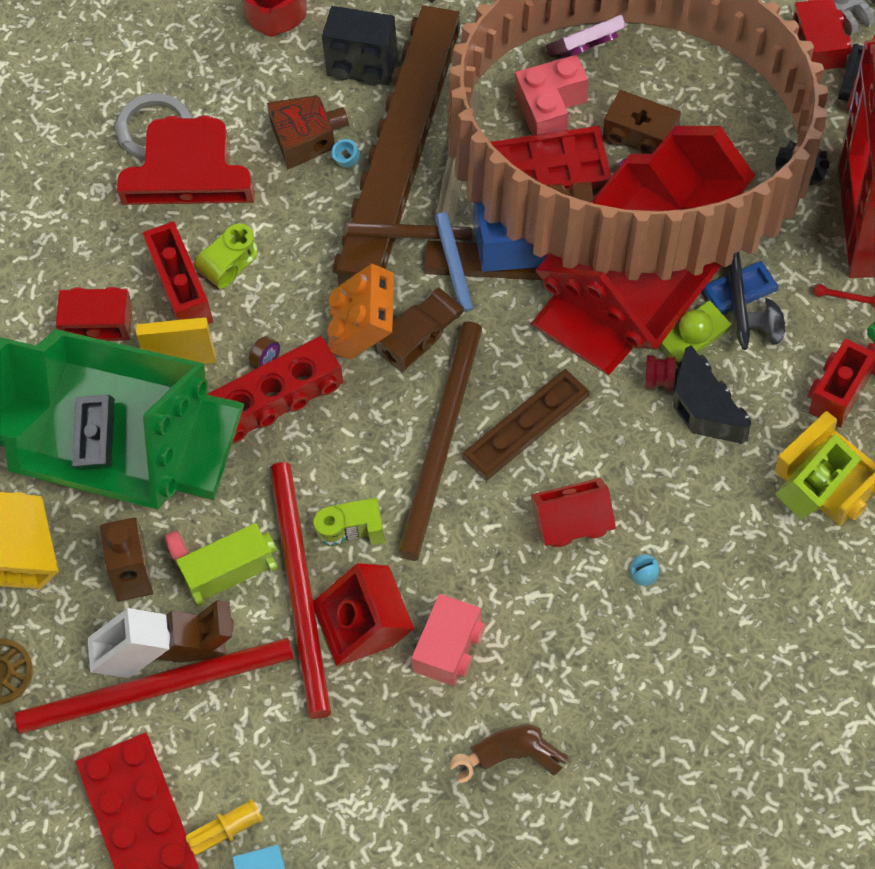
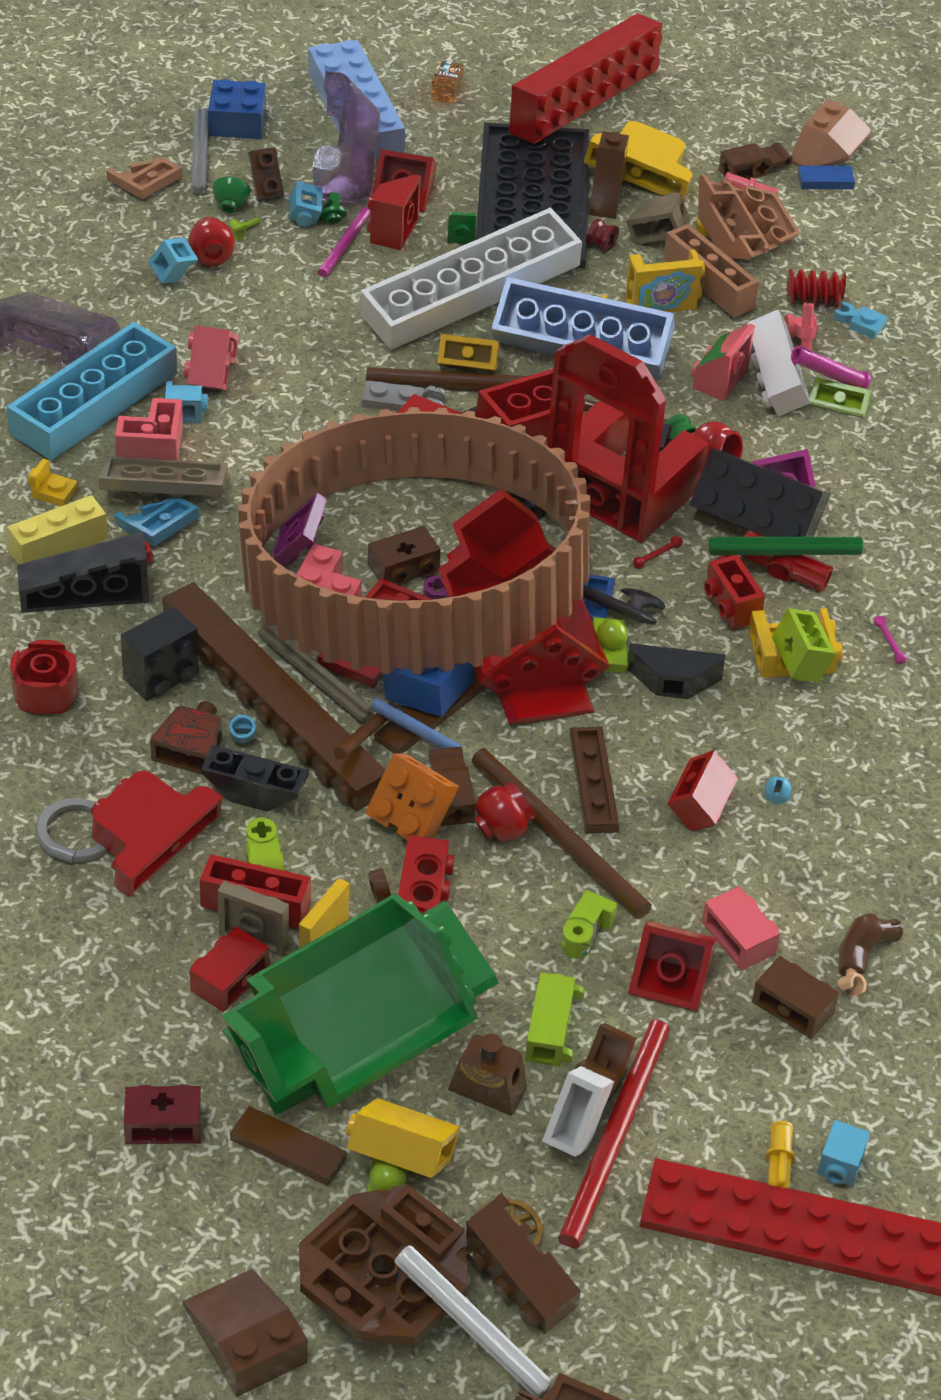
camera: 60 degrees left, 15 degrees down
(93, 432) = (364, 1017): plate -> none
(144, 287) = (255, 914): none -> dark tan plate
(176, 545) = (511, 1038): coral tile -> none
(291, 191) = (253, 779): none -> black slope
(300, 591) = (613, 991): red piece -> none
(405, 731) = (795, 997): none -> reddish brown brick
(412, 384) = (503, 813): none -> red piece
(660, 373) = (627, 679): dark red wheel -> none

